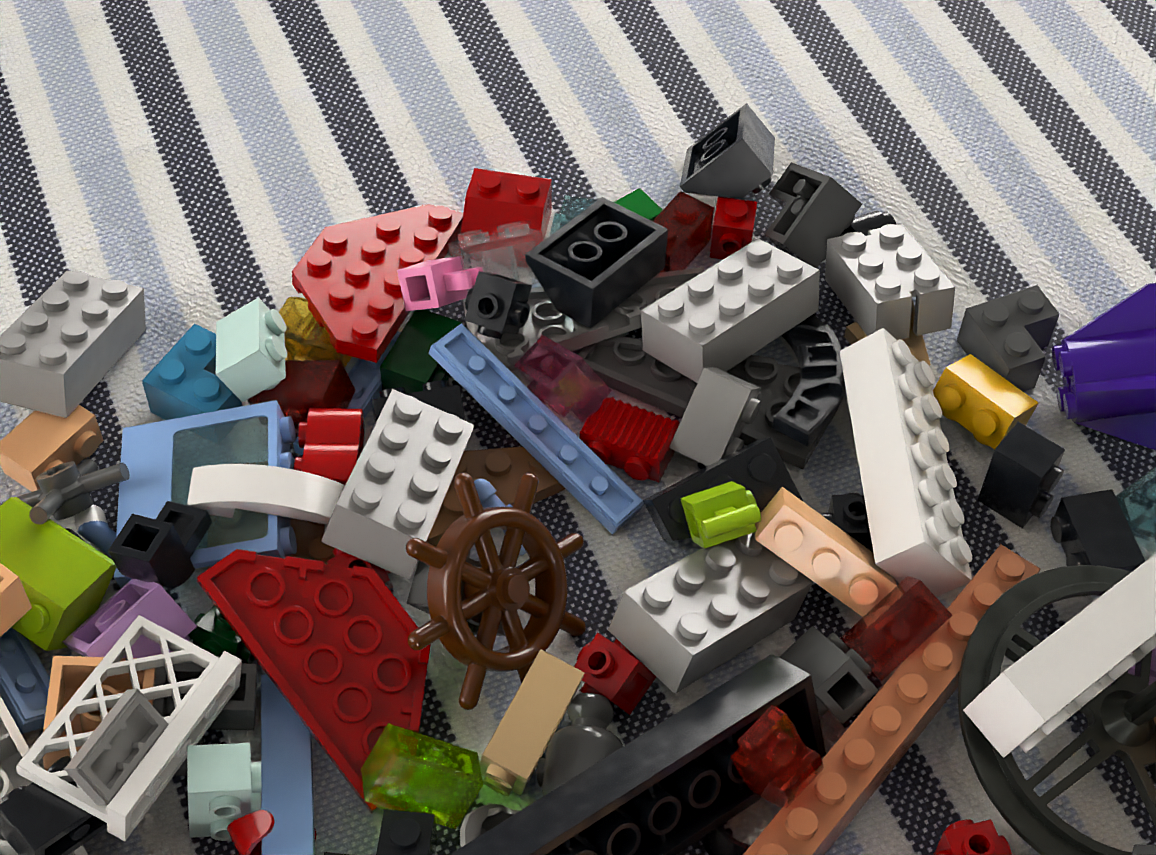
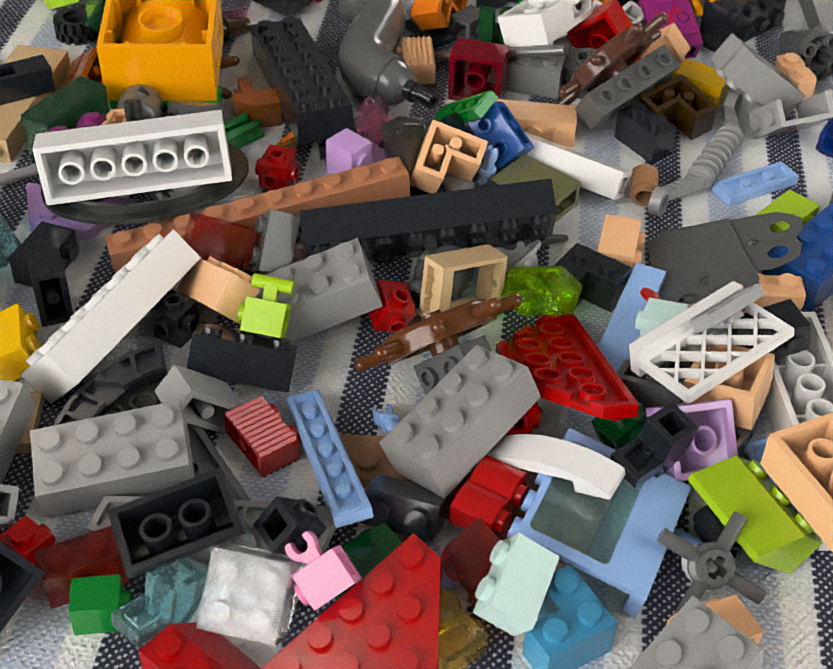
camera: 150 degrees left, 10 degrees down
(562, 379) = (283, 462): clear pink brick -> none
(775, 759) = (353, 181): clear red brick -> none

